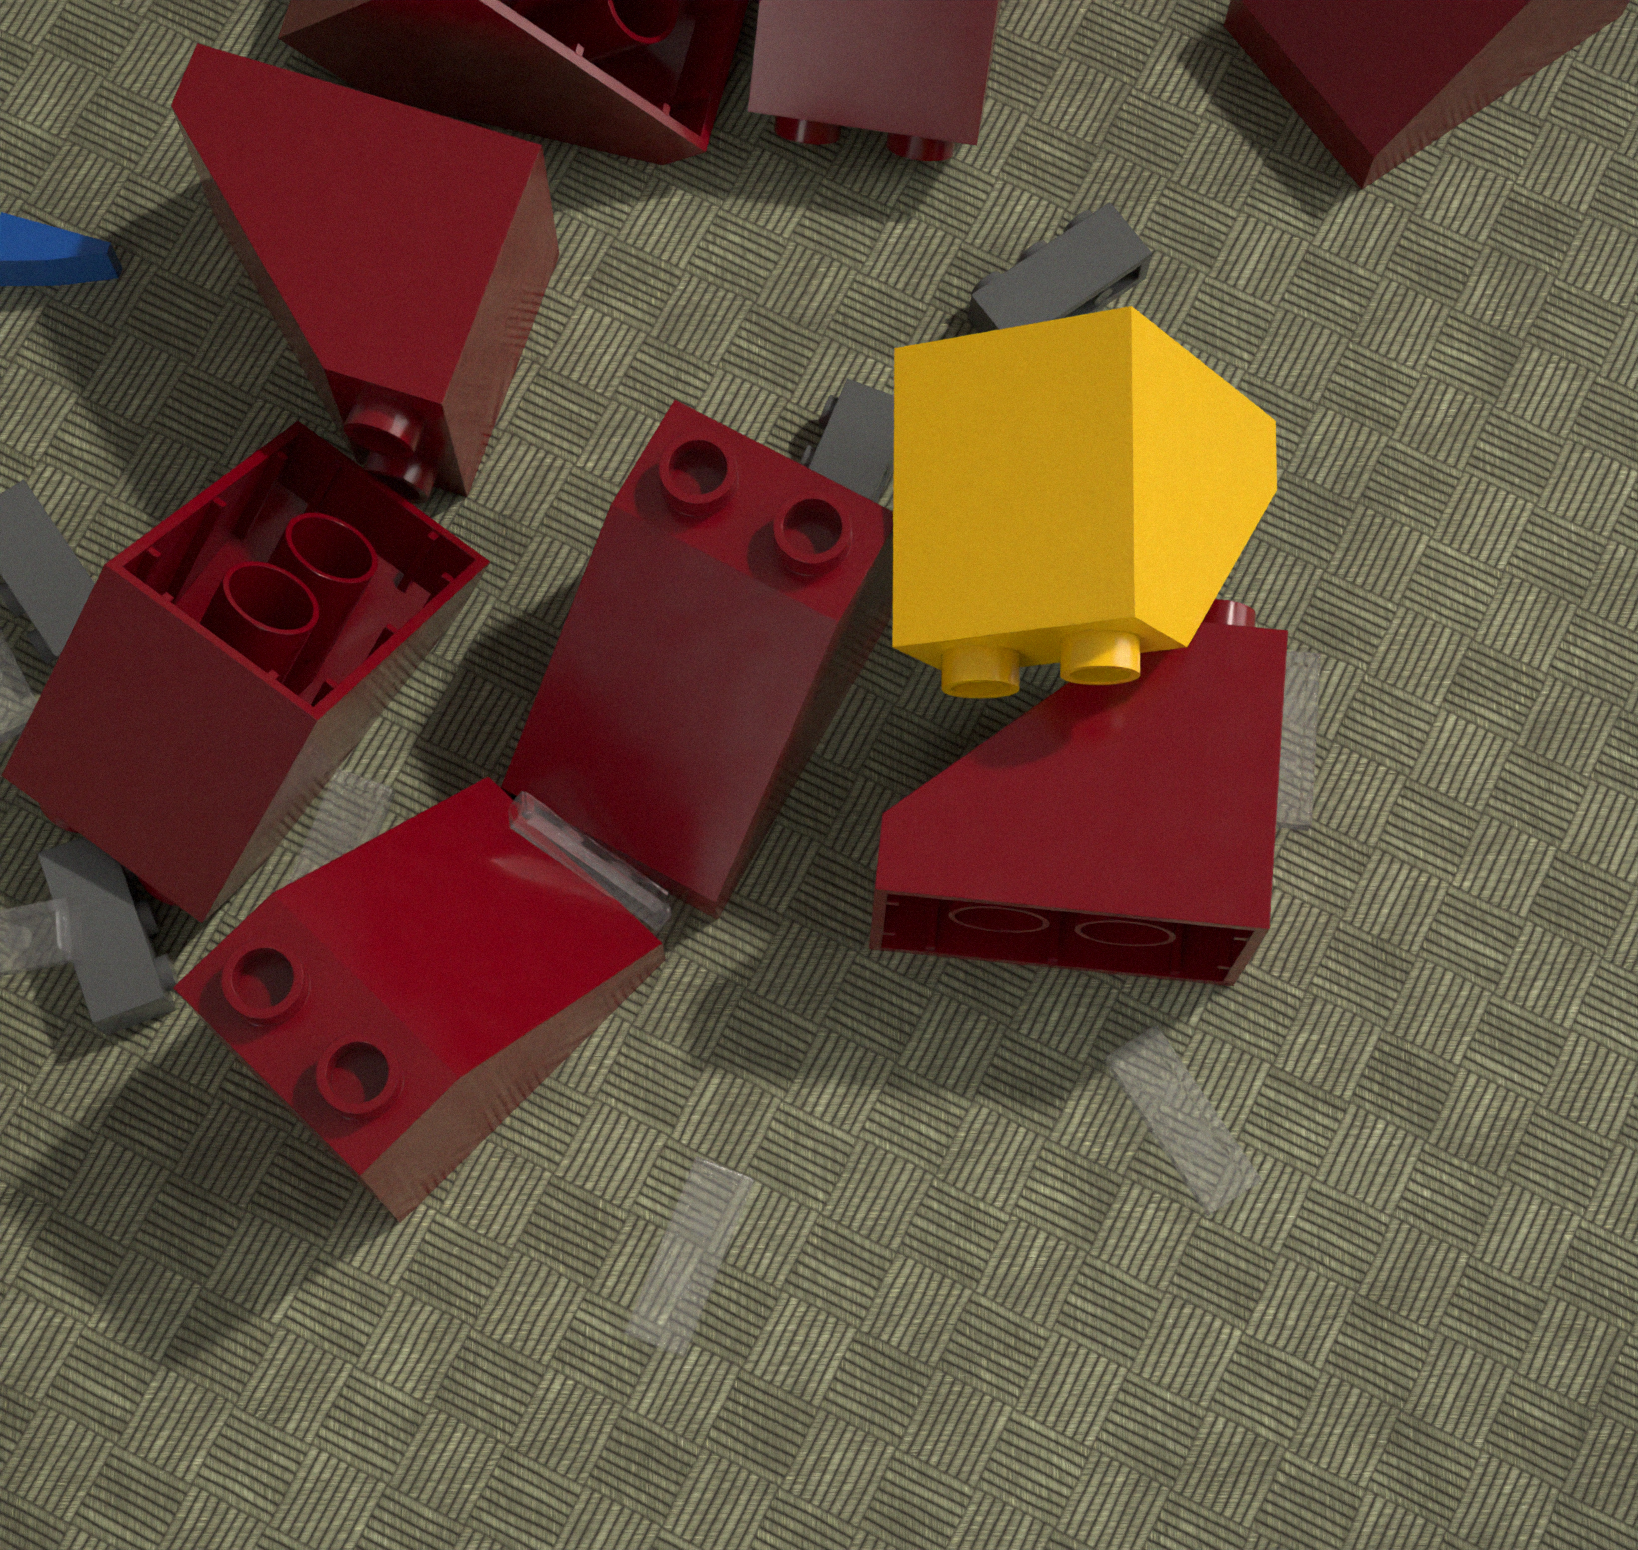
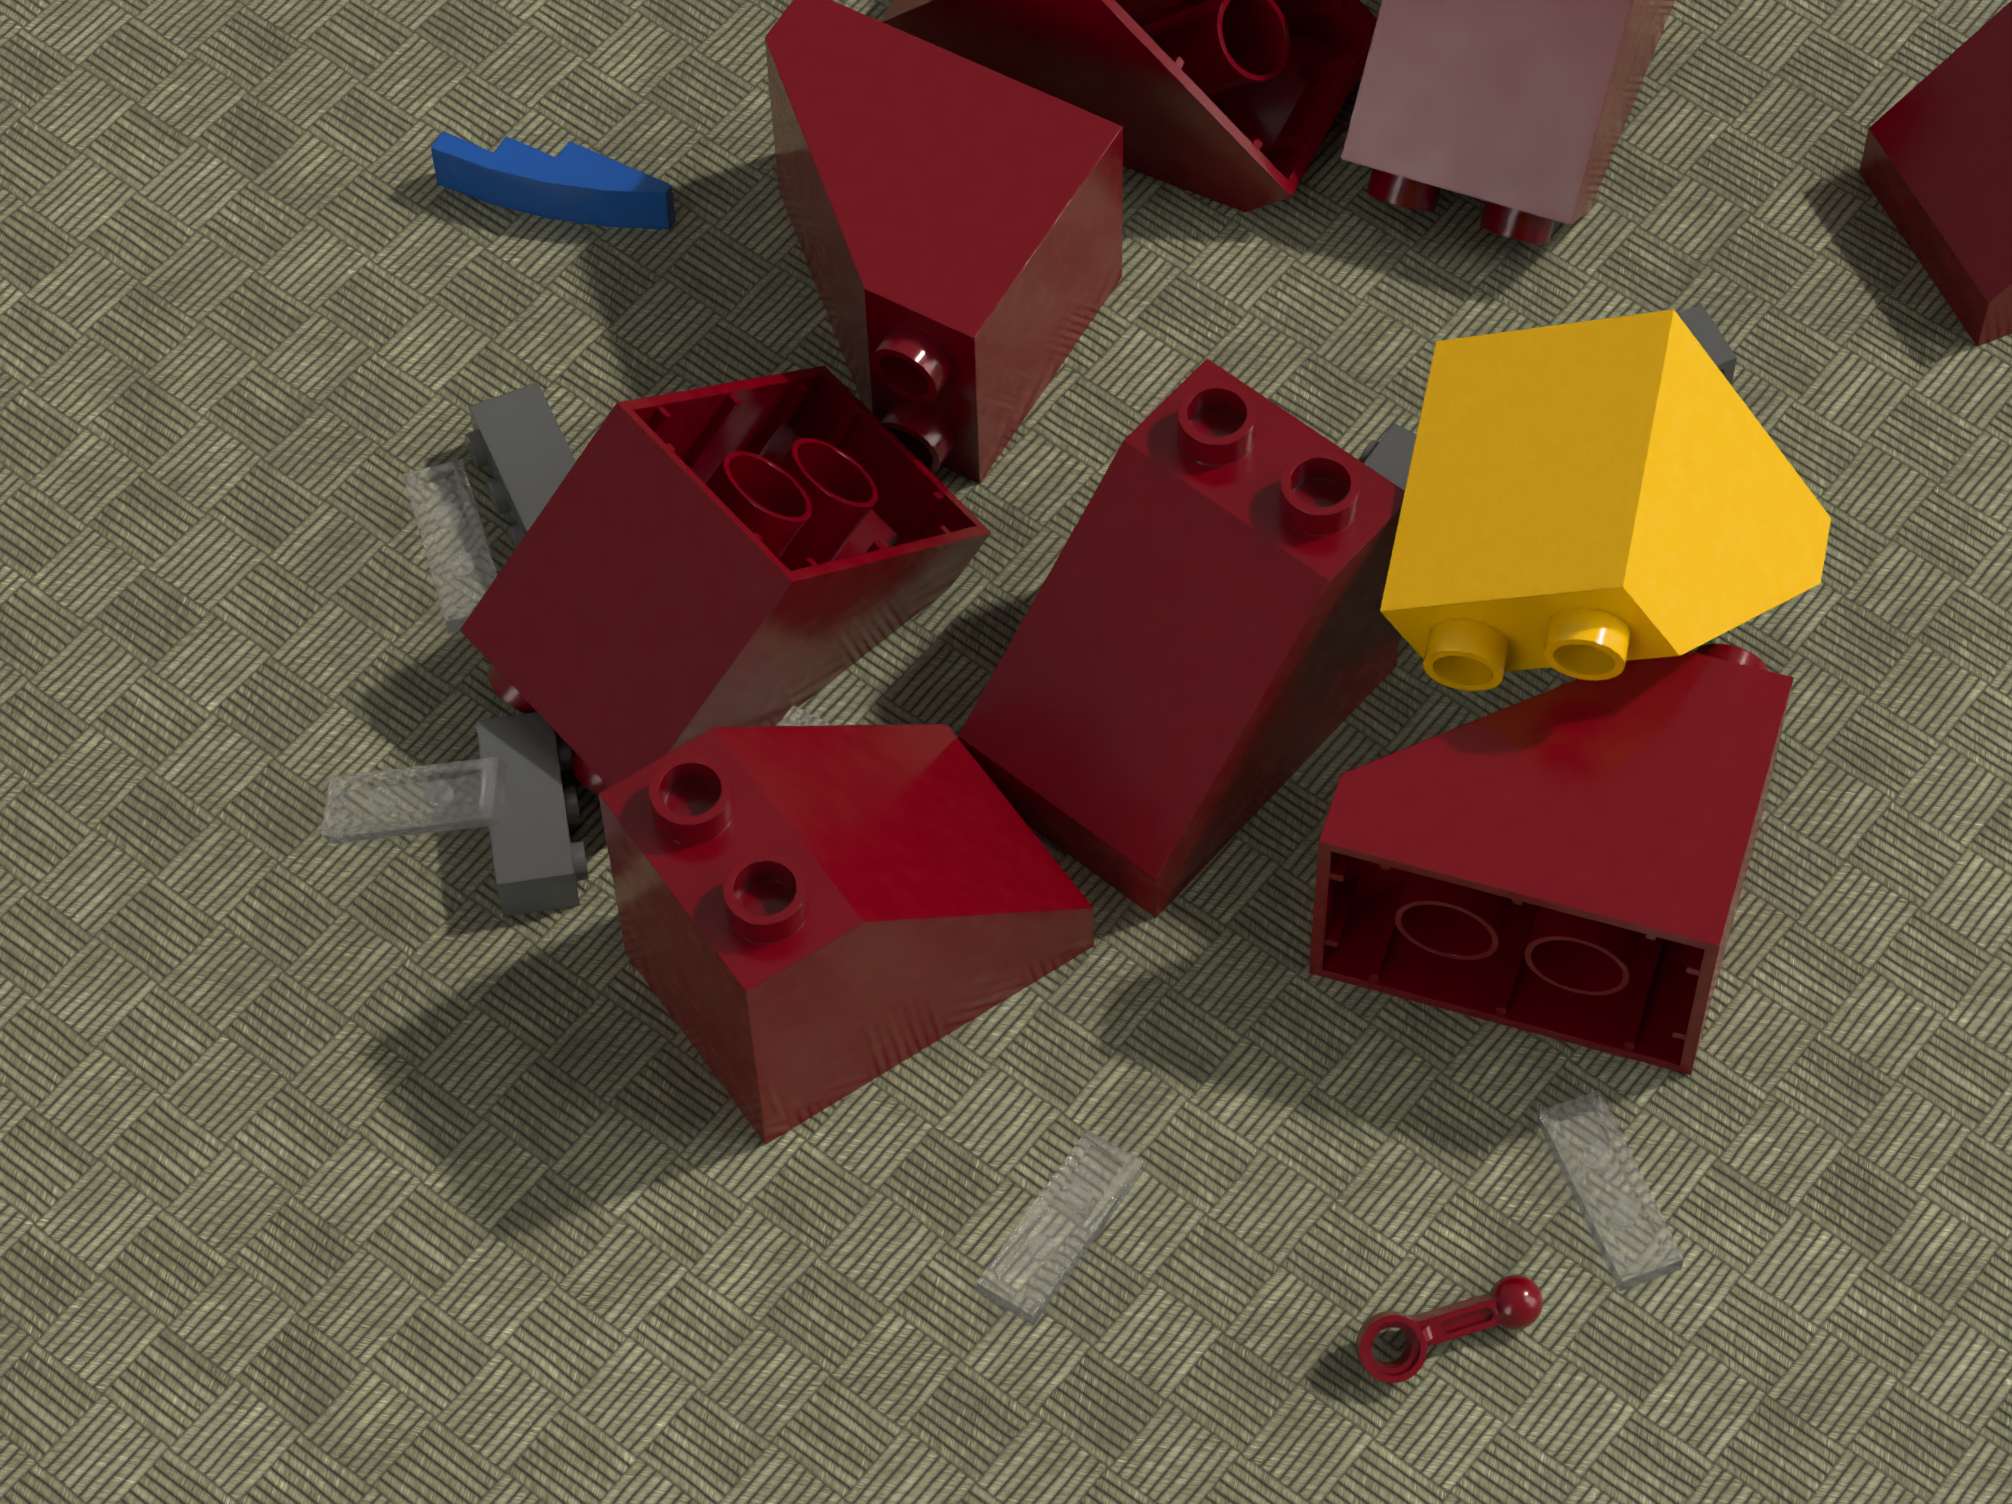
camera: 15 degrees right, 15 degrees down
(589, 860) = (1035, 820): clear tile -> none
(1115, 1256) = (1512, 1303): none -> dark red piece
(1298, 741) = (1791, 847): clear tile -> none

